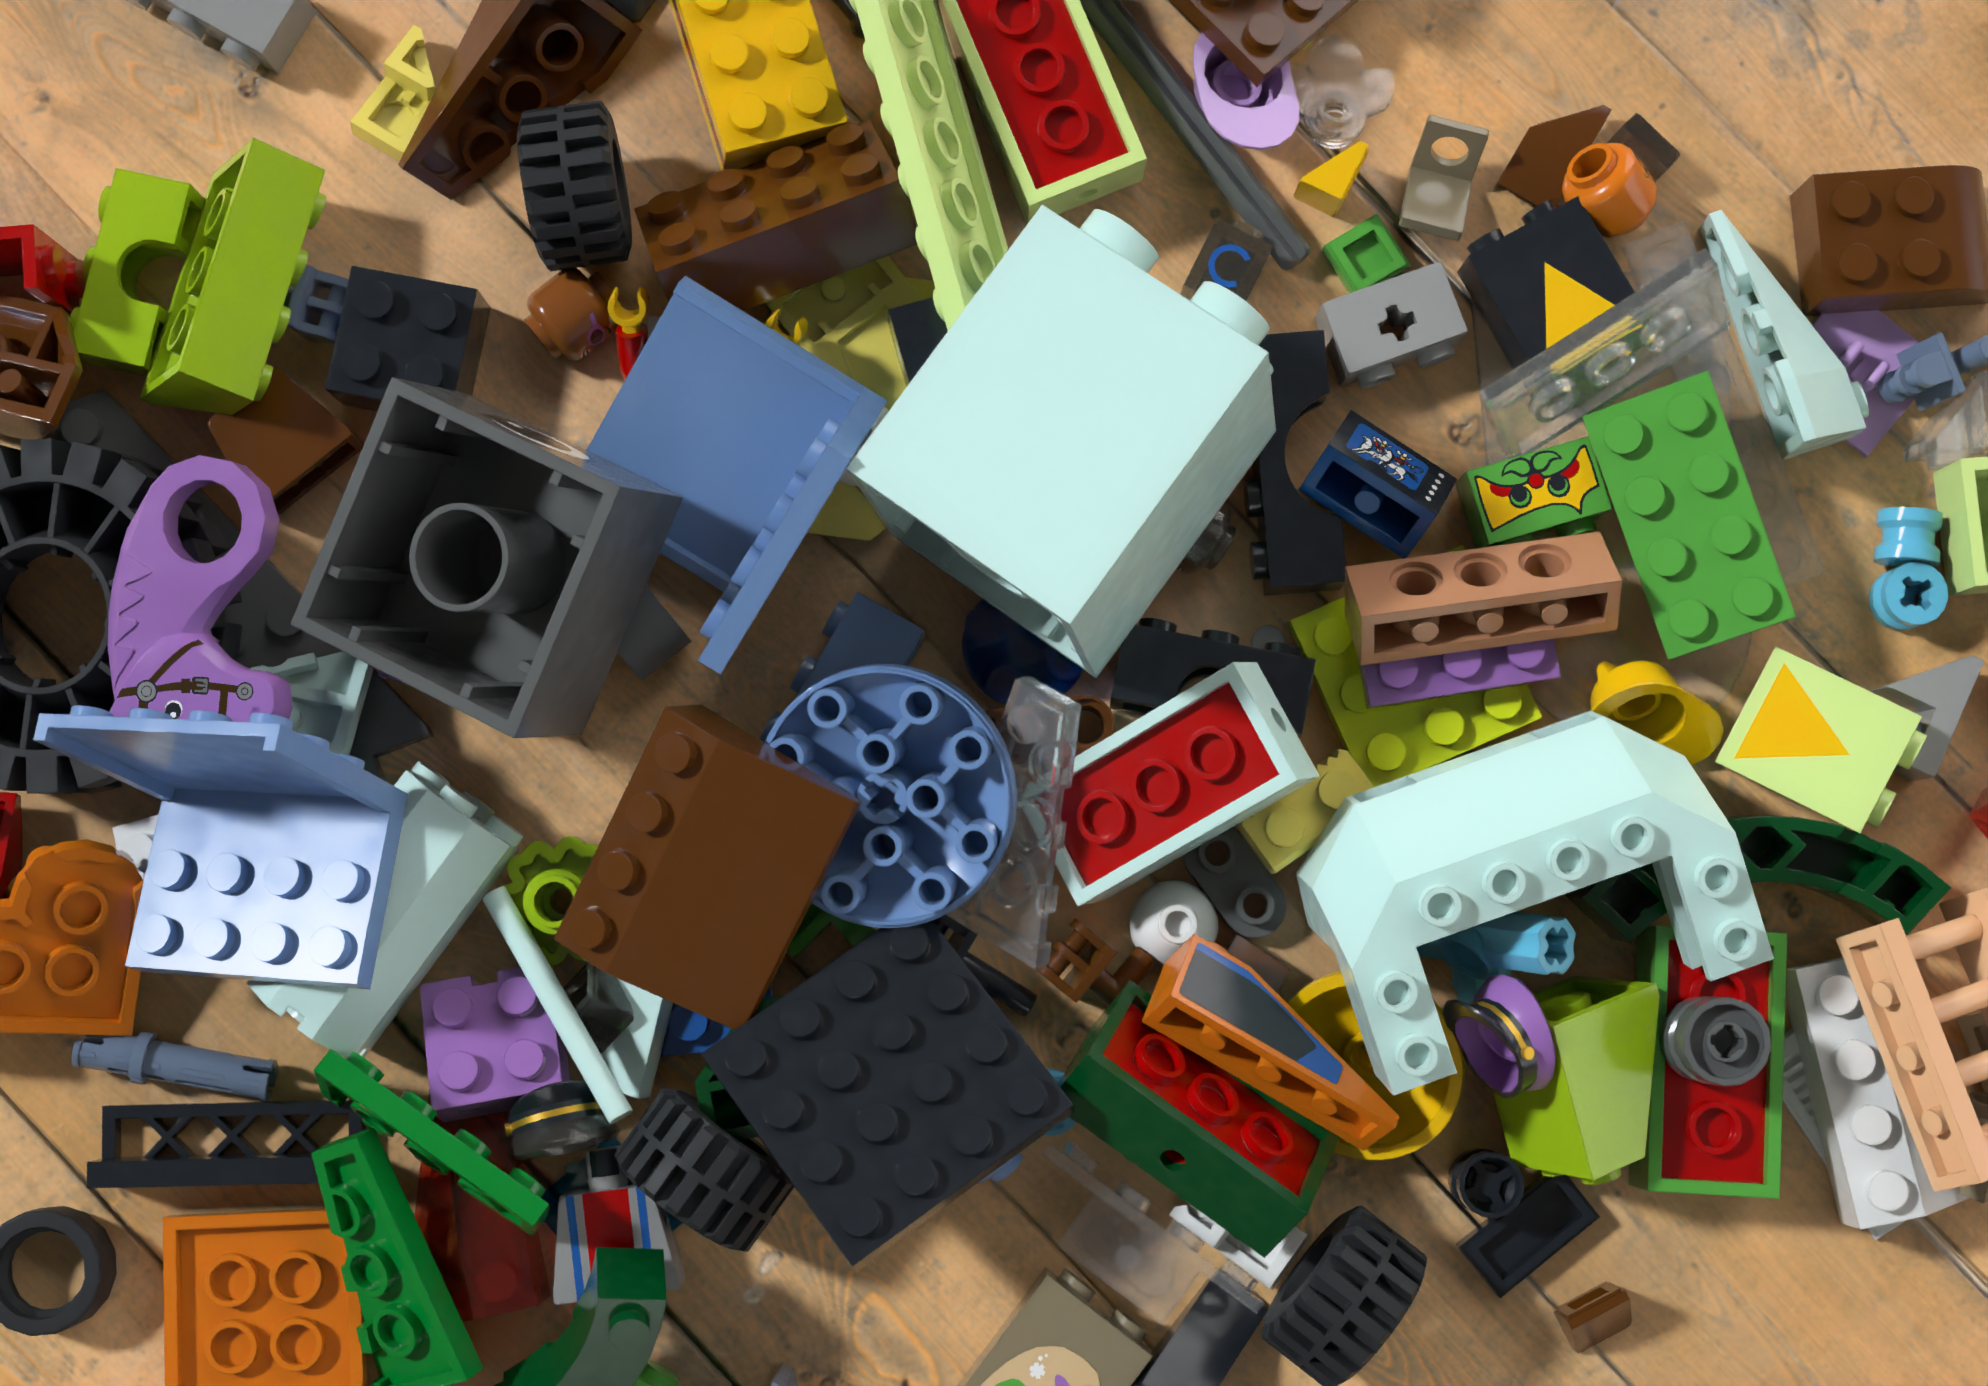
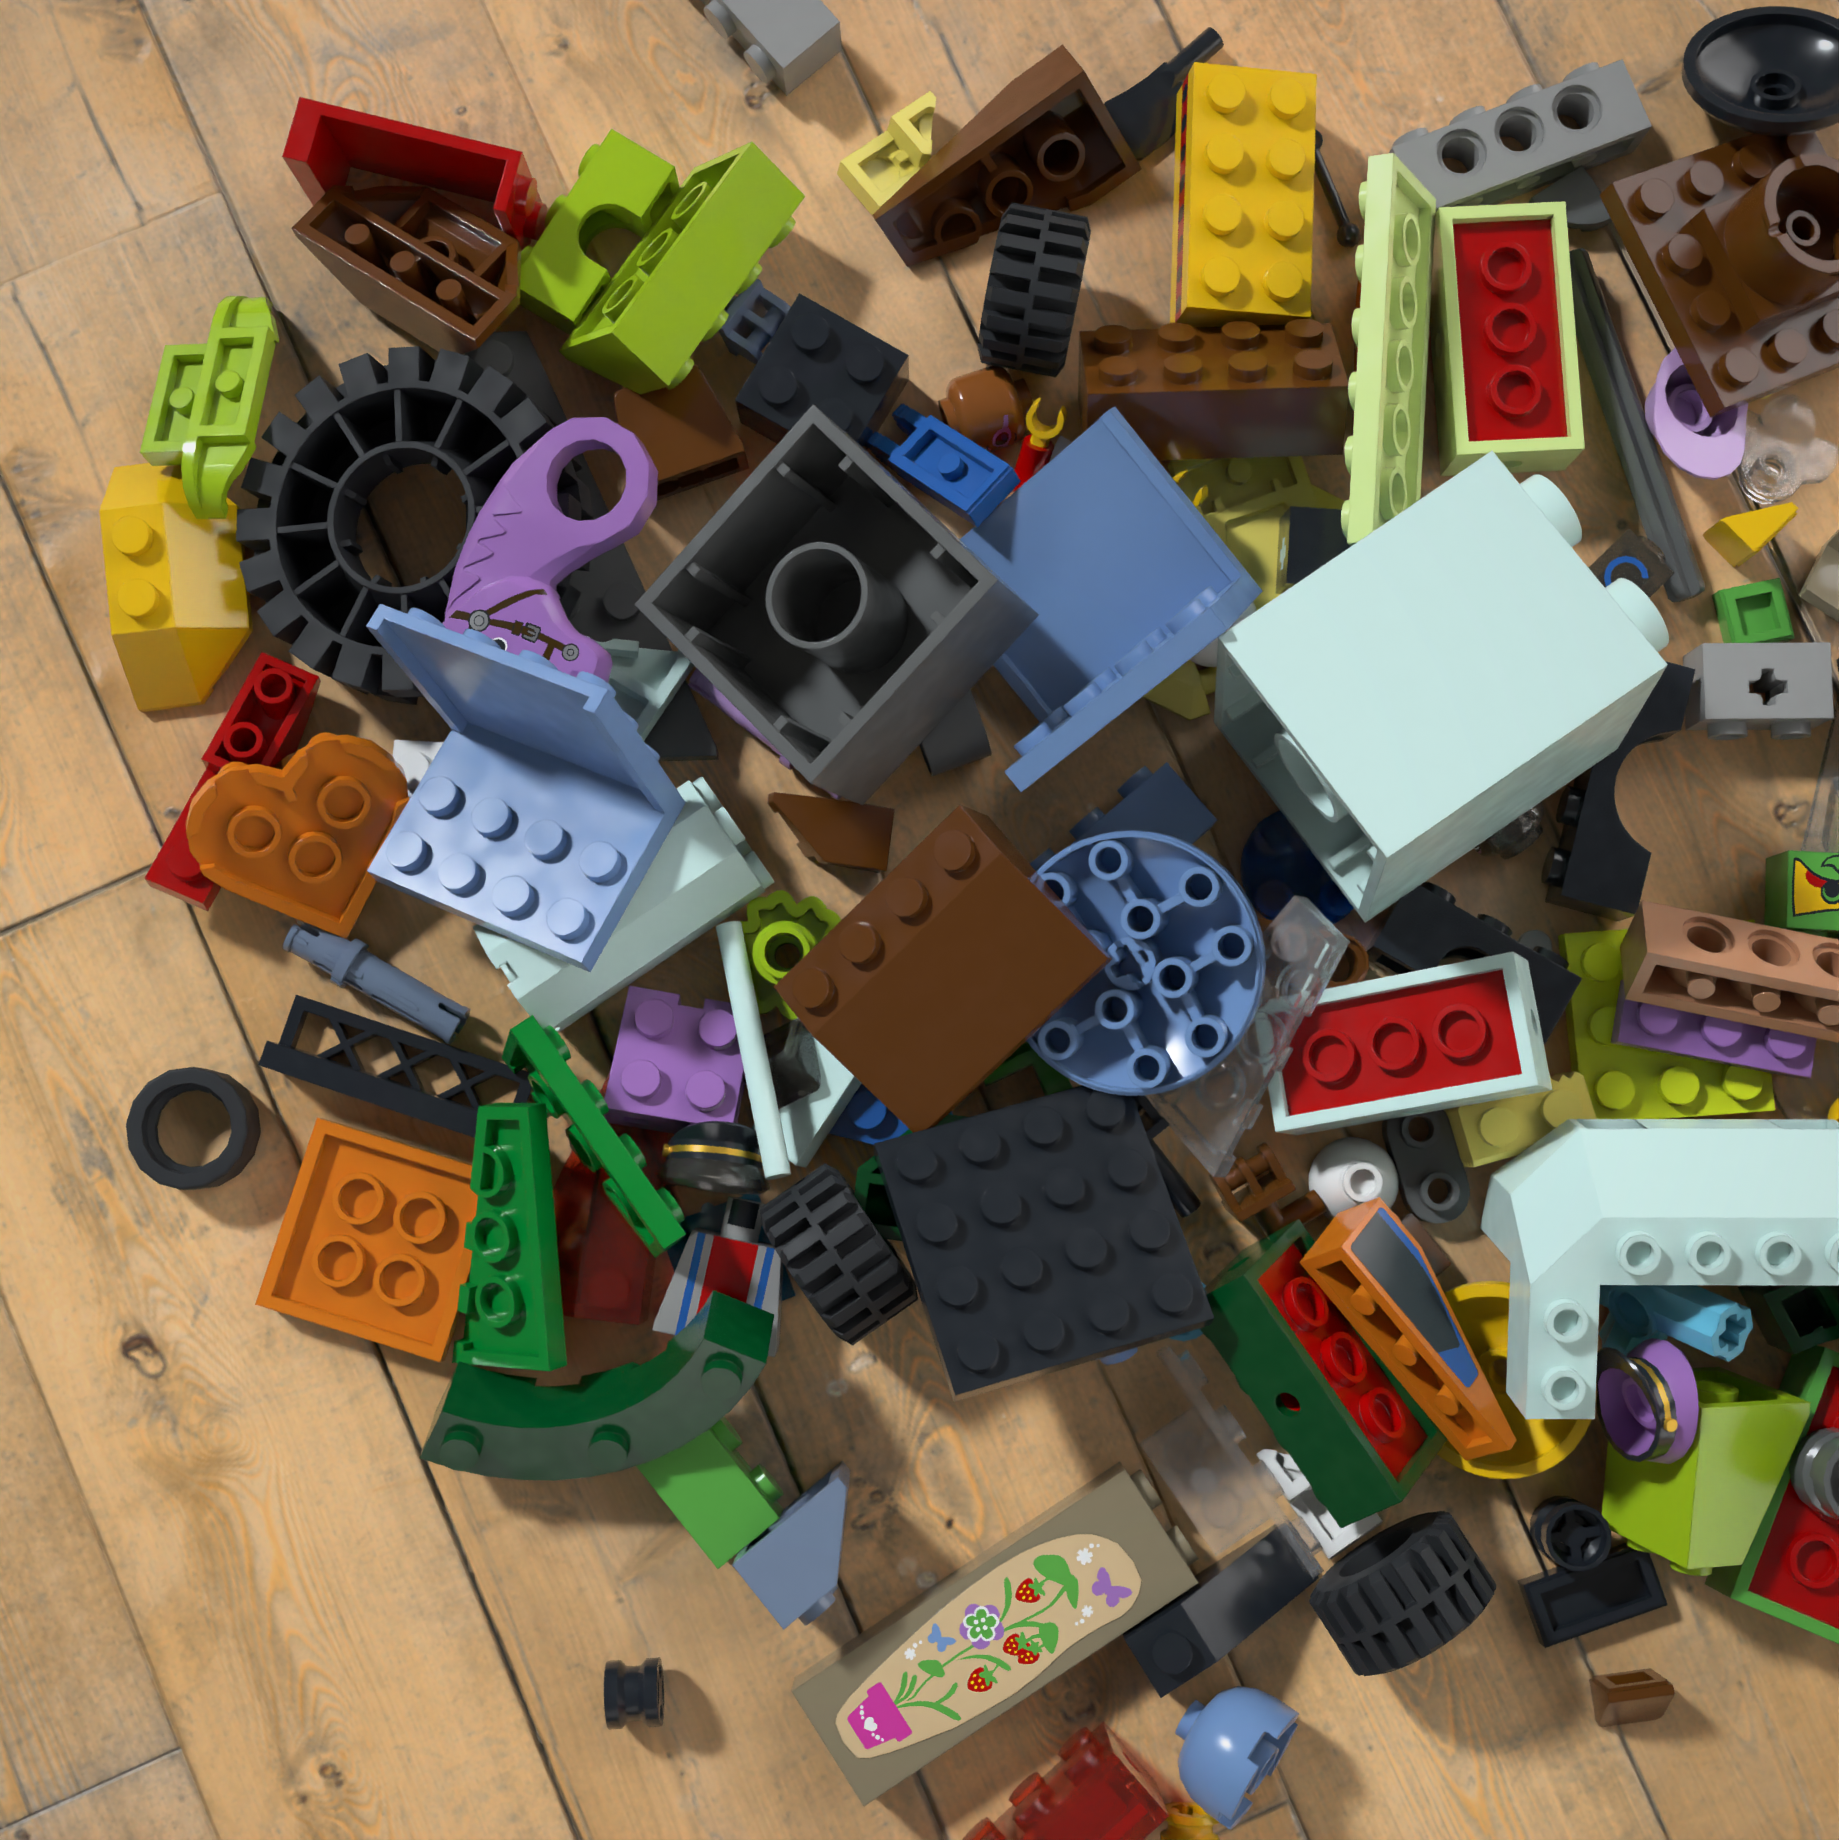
camera: 25 degrees right, 0 degrees up
(550, 382) = (946, 465): none -> blue hinge
(570, 765) = (838, 830): none -> reddish brown slope
(1378, 484) = (1696, 834): brick -> none

